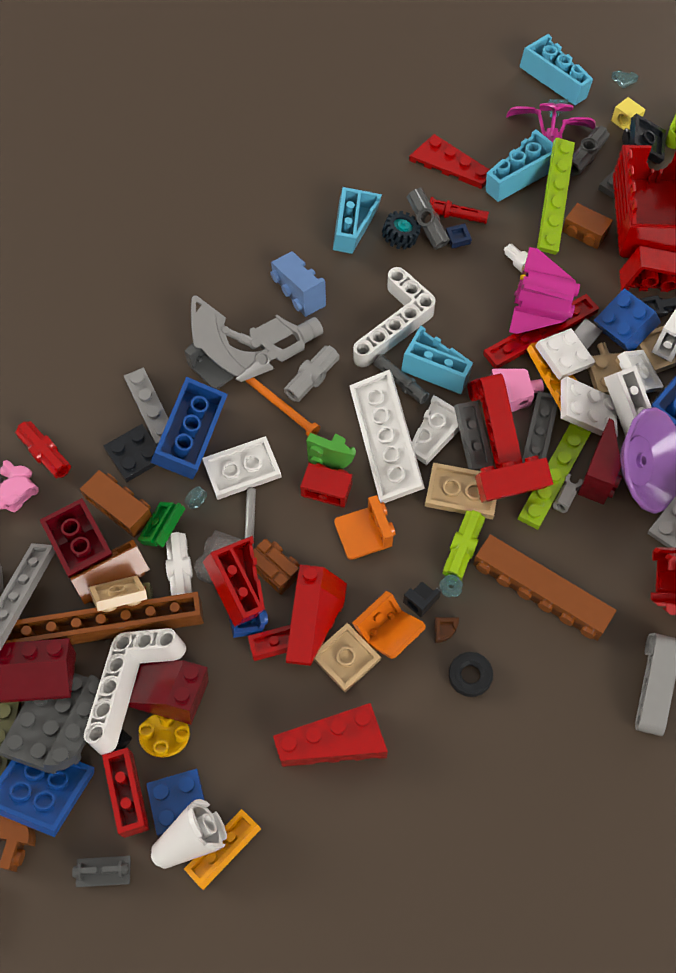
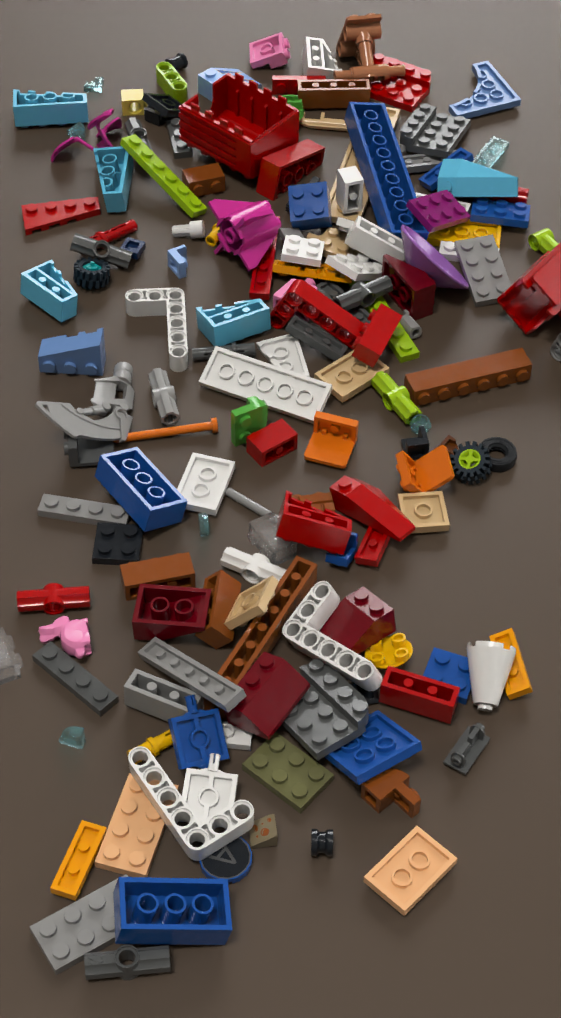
camera: 55 degrees left, 15 degrees down
(161, 524) = (207, 554): green plate -> none
(333, 739) = (484, 548): red wedge -> none
(425, 657) = (467, 455): none -> black wheel
(475, 271) = (178, 260): none -> light blue bracket
(558, 434) = (363, 293): none -> dark grey piece

